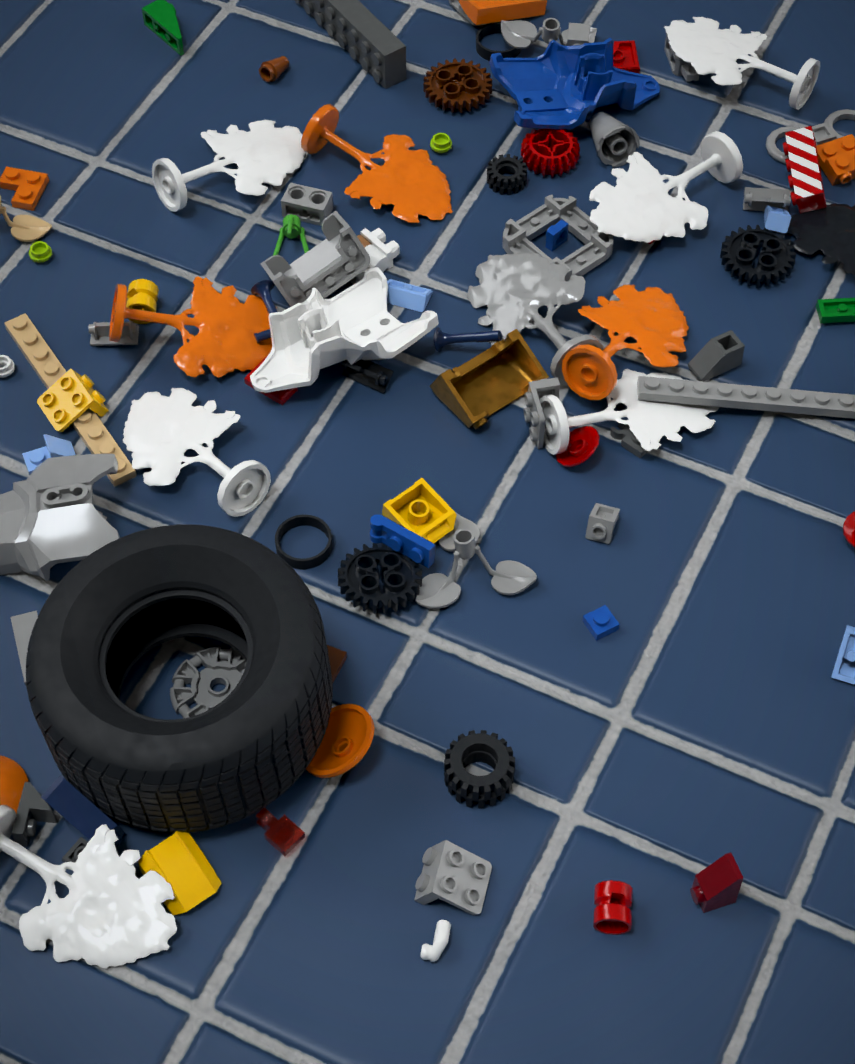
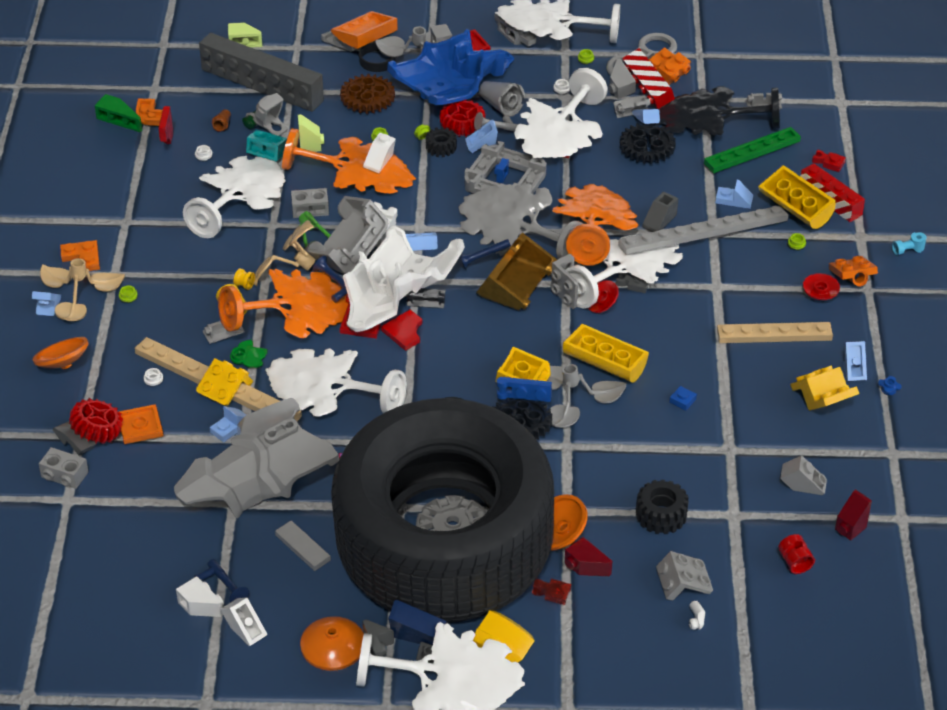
camera: 25 degrees left, 10 degrees down
(123, 375) = (248, 355): none -> green plate
(175, 277) = (244, 279): none -> yellow wheel
(199, 37) = (146, 110): none -> orange plate
(200, 58) = (165, 126): none -> red tile
(229, 102) = (203, 152): none -> white plate
(254, 271) = (302, 257): none -> tan plant
(296, 112) = (266, 145): none -> teal brick
(318, 404) = (403, 329): none -> red tile
(323, 74) = (265, 114): none -> light grey piece
(343, 804) = (587, 559): none -> dark red slope
(355, 117) = (309, 135): none -> yellowish green slope
(419, 167) = (379, 152): none -> white slope
(491, 152) = (421, 131): none -> lime plate
(536, 526) = (606, 353): none -> yellow brick
(556, 183) = (485, 135): none -> light blue slope
(564, 164) = (506, 125): none -> light grey piece
(601, 523) = (647, 338): light grey bracket -> none
(688, 797) = (803, 476): none -> light grey slope
(693, 146) = (561, 86): none -> white plate
(749, 116) = (586, 56): none -> lime plate
(771, 162) = (621, 80): none -> light grey slope
(773, 573) = (774, 332): none -> tan plate
(785, 680) = (823, 387): none -> yellow bracket
(832, 366) = (735, 197): none -> light blue slope

